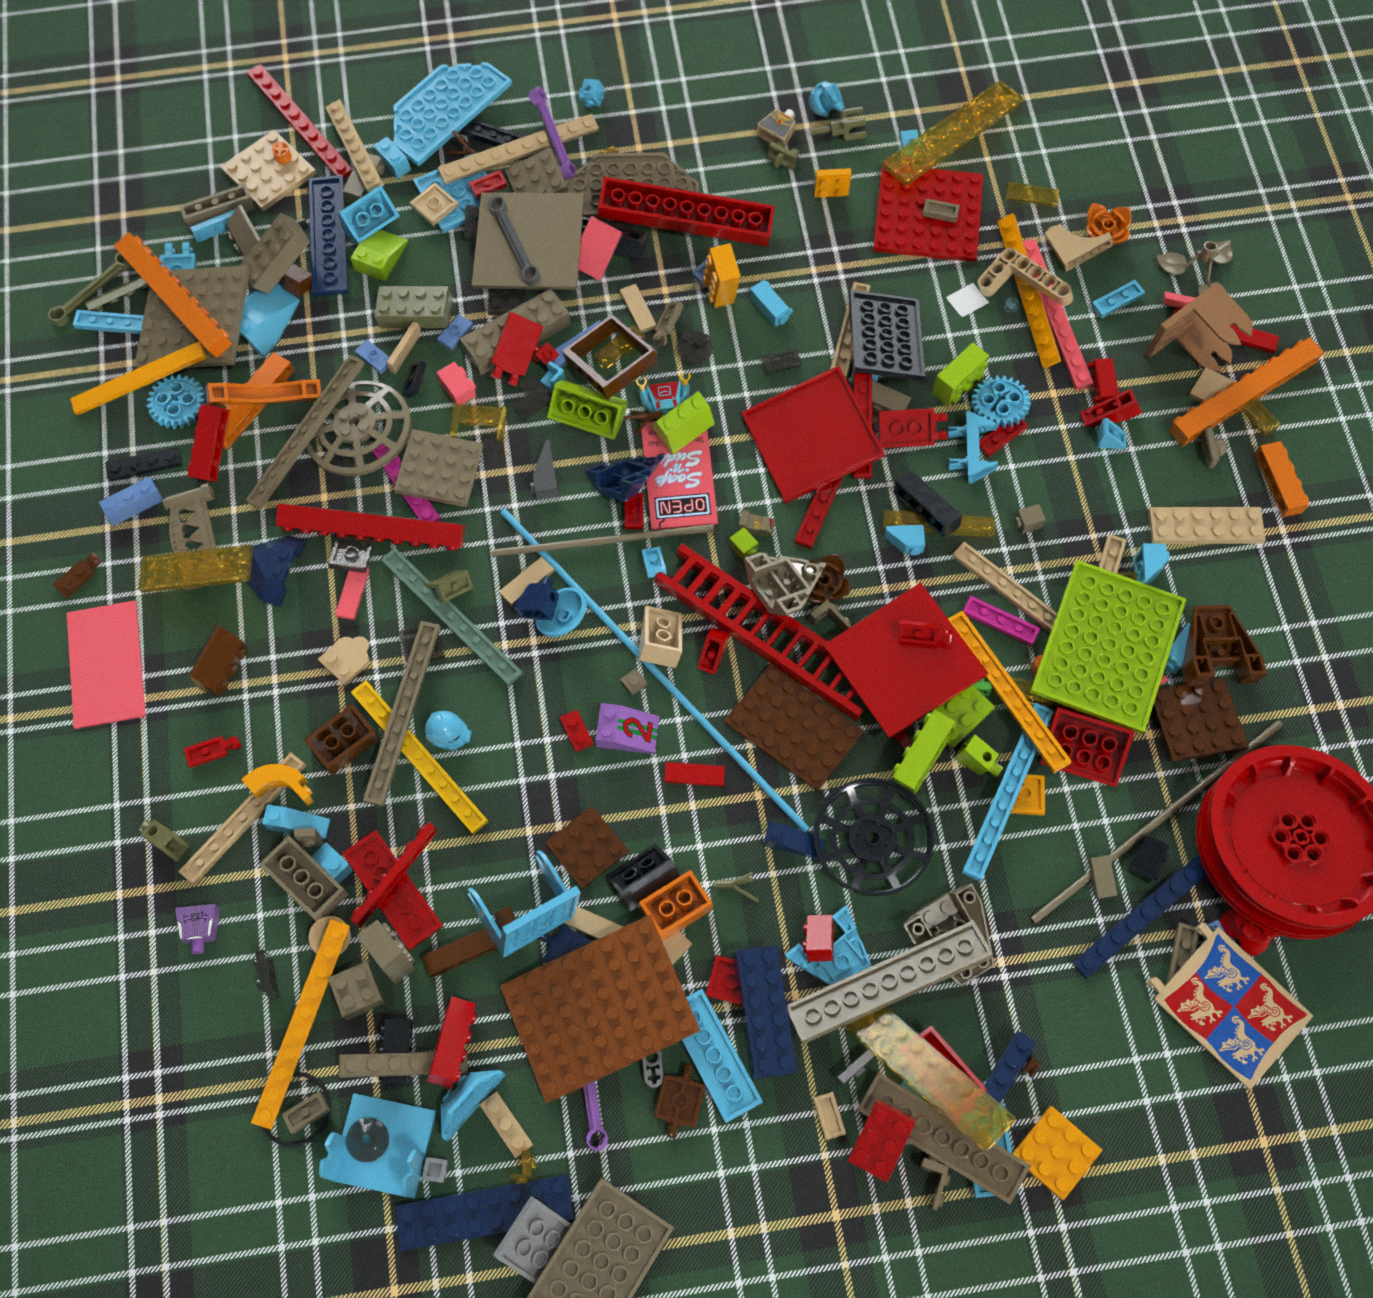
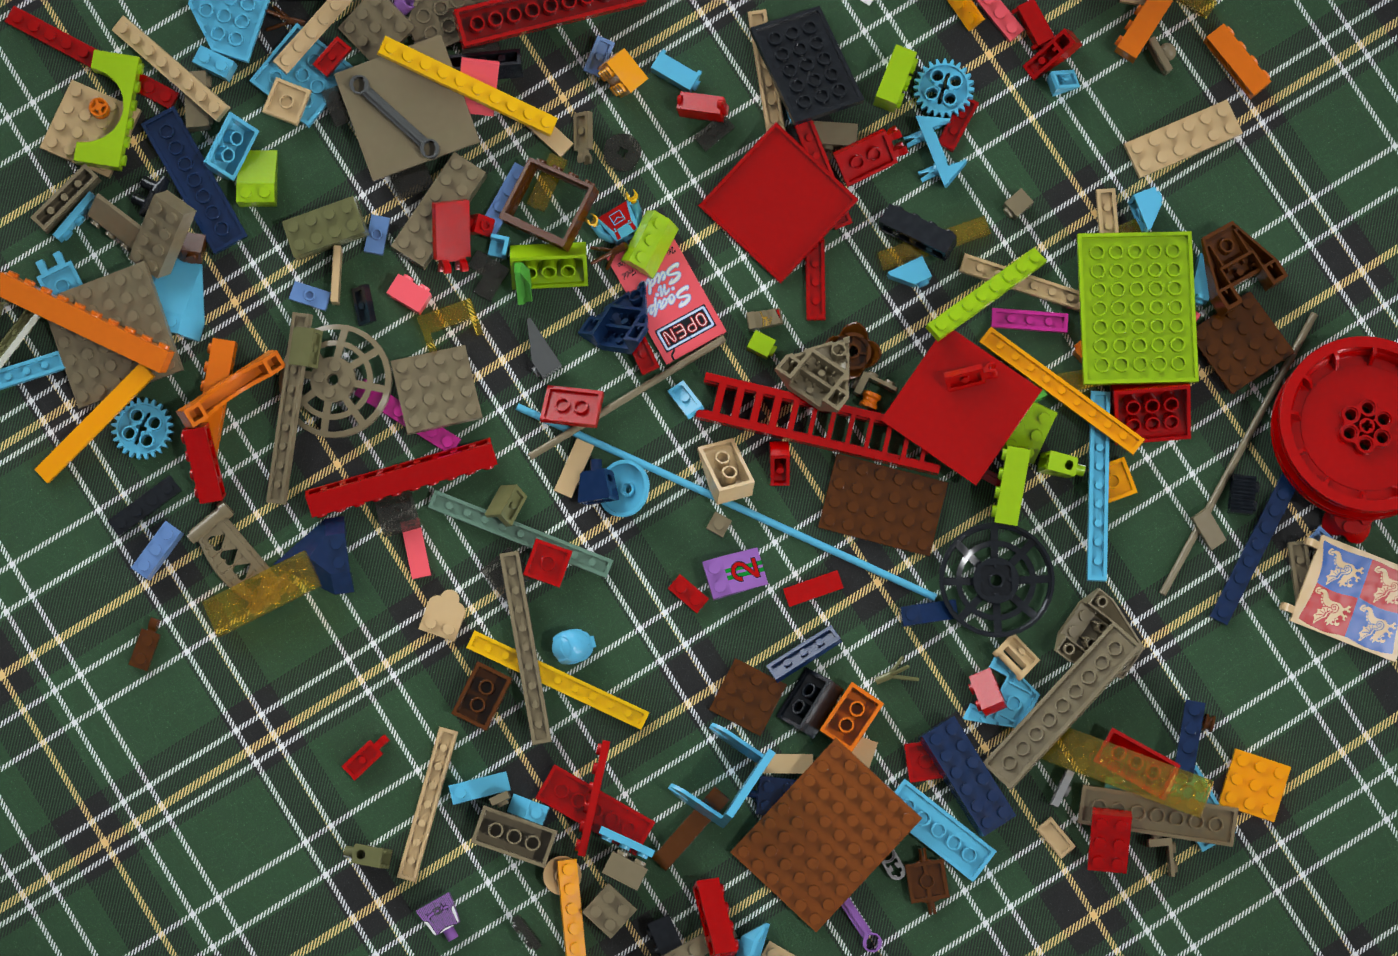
camera: 30 degrees left, 15 degrees up
(105, 665) = (221, 717): coral piece -> none
(218, 662) = (332, 673): reddish brown slope -> none
(274, 183) = (111, 149): none -> lime arch
(276, 775) = (434, 759): light orange arch -> none
(345, 385) = (305, 347): none -> olive panel
(403, 930) = (626, 843): none -> medium azure plate
(460, 647) = (547, 563): none -> red plate
(549, 526) = (572, 406): none -> plate
(557, 409) = (523, 283): none -> bright green slope
(586, 240) = (467, 86): none -> yellow plate
(658, 828) = (804, 653): none -> plate
(779, 334) = (702, 106): none -> brick
(823, 628) = (869, 400): none -> orange wheel
(867, 916) = (1019, 653): none -> tan plate
(968, 575) = (985, 294): none -> lime plate

